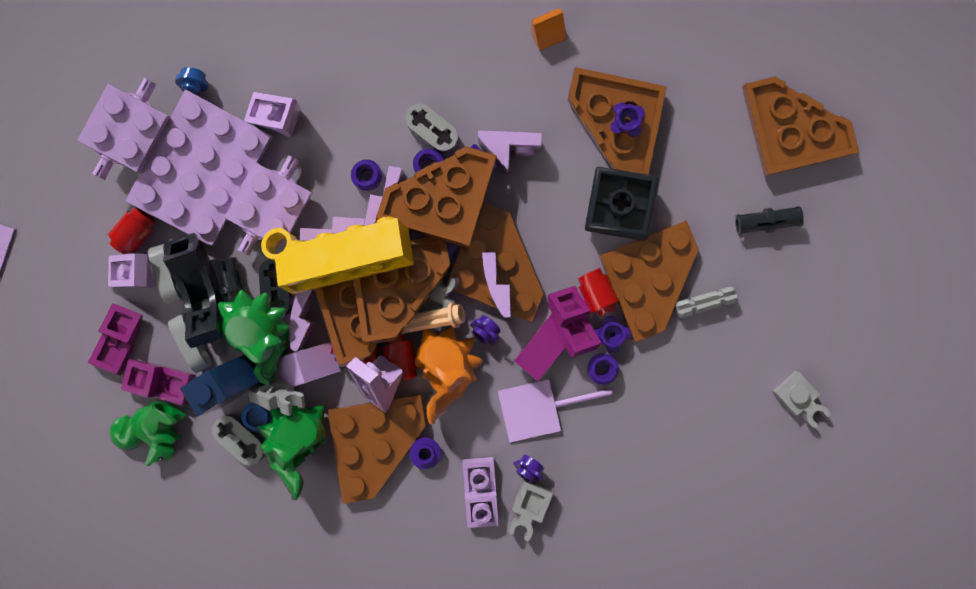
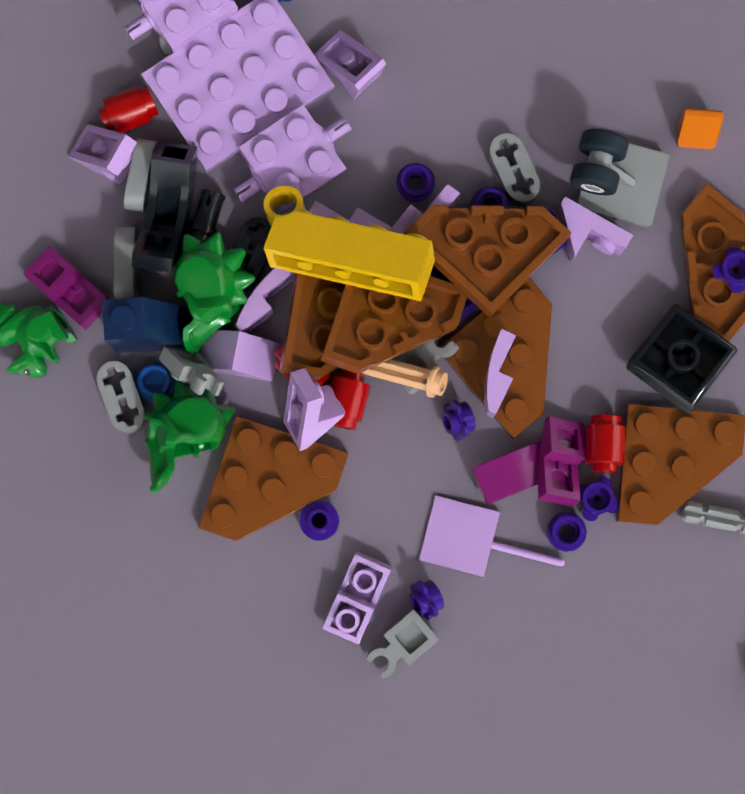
camera: 30 degrees right, 5 degrees down
(117, 339) = (46, 219): magenta slope -> none
(447, 367) = (394, 436): orange head -> none
(510, 95) = (619, 177): none -> light grey plate

